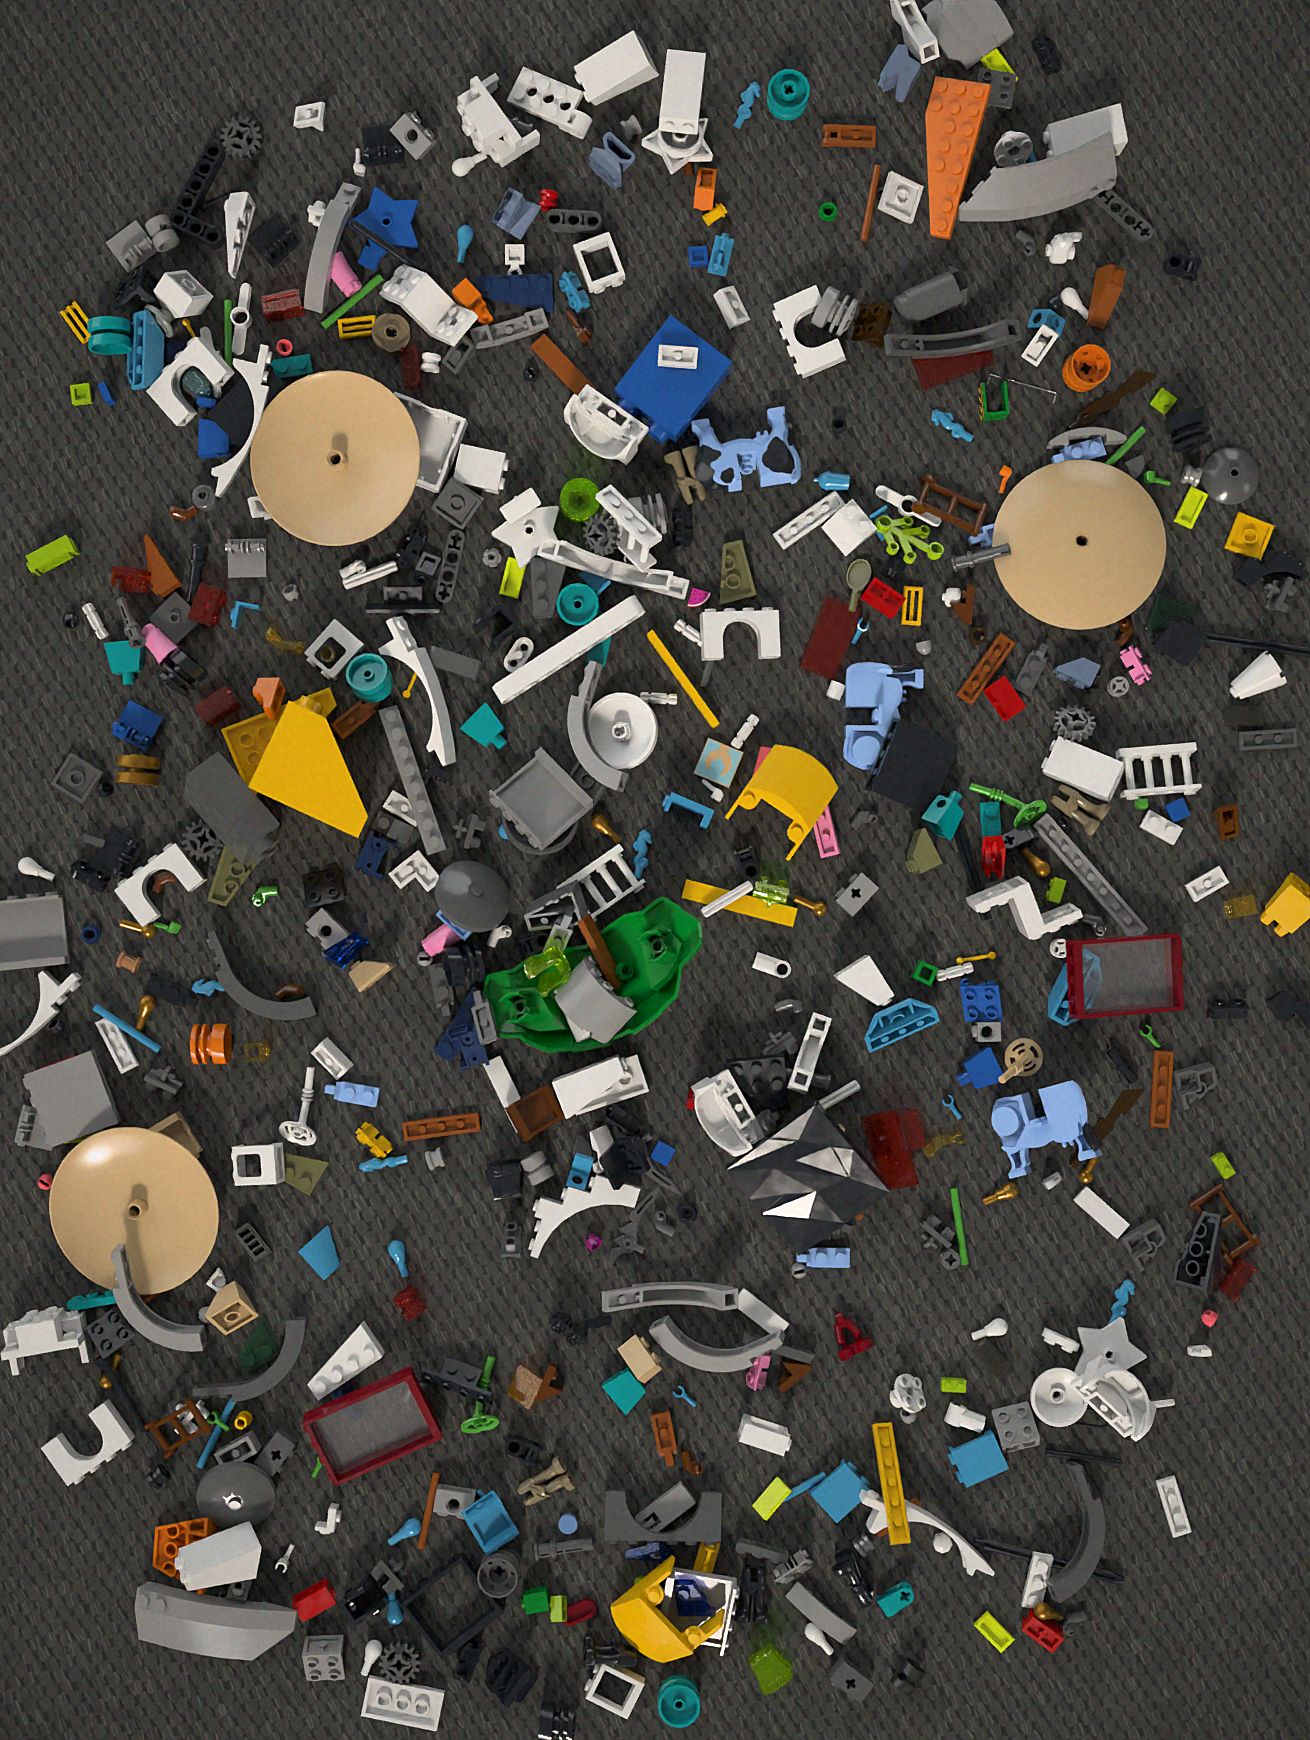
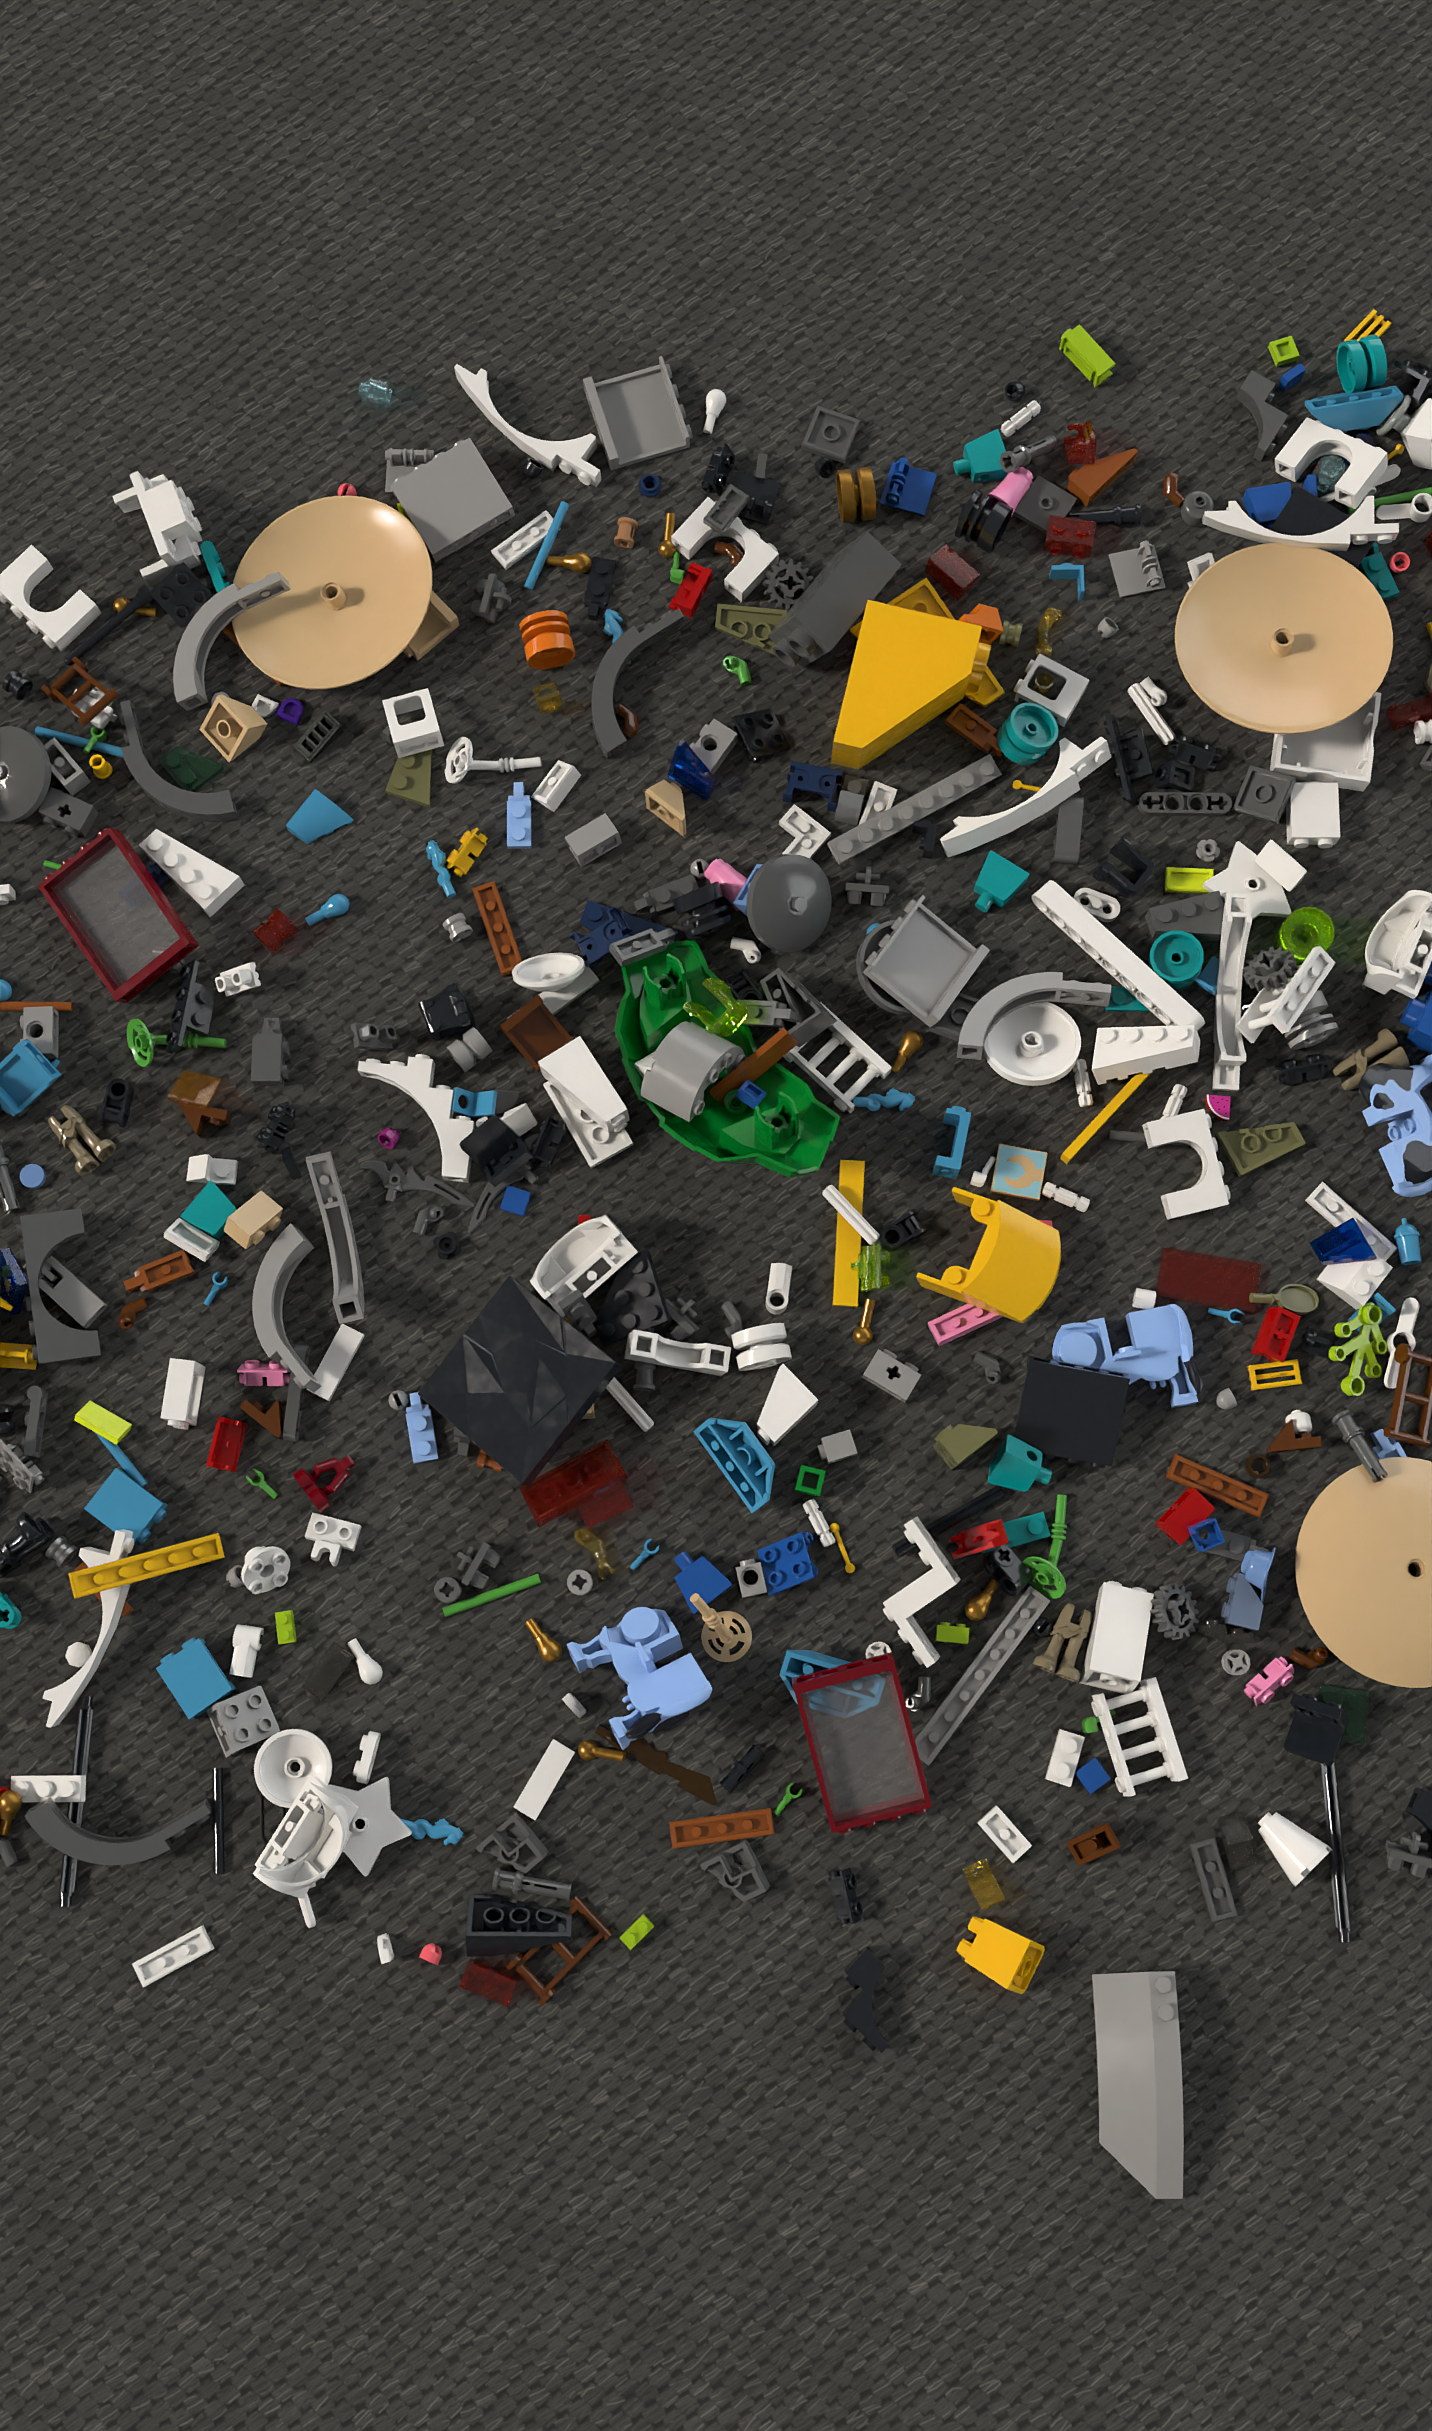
camera: 80 degrees right, 10 degrees down
(117, 425) = (1257, 397): none -> dark grey arch
(129, 878) = (726, 509): none -> dark grey plate
(189, 918) = (692, 590): none -> red hinge
(225, 1259) = (291, 711): none -> dark purple tile
(280, 671) = (1011, 633): none -> olive wheel
(384, 1038) = (593, 840): none -> light grey hinge
(444, 1338) = (238, 979): none -> white hips
(487, 1094) = (548, 971): none -> white dish
(508, 1323) = (269, 1055): none -> dark grey hinge
(591, 1383) = (205, 1168): none -> white slope
(622, 958) = (750, 1094): none -> blue tile
(644, 1408) = (191, 1239): none -> white tile
(645, 653) = (1142, 1049): none -> white wedge
(807, 1406) = (226, 1444): none -> red hinge
(820, 988) = (761, 1346): none -> white wheel
(826, 531) = (1343, 1245): none -> clear blue wing
(840, 1386) = (262, 1484): none -> bright green hand
(892, 1338) = (331, 1536): none -> white plate
(901, 946) = (837, 1447): none -> light grey brick
(959, 1159) = (583, 1582): none -> light grey wheel
(1027, 682) = (1214, 1534): none -> blue piece
(1055, 655) = (1256, 1568): none -> medium blue piece
(1174, 1247) = (563, 1889): none -> dark grey pin

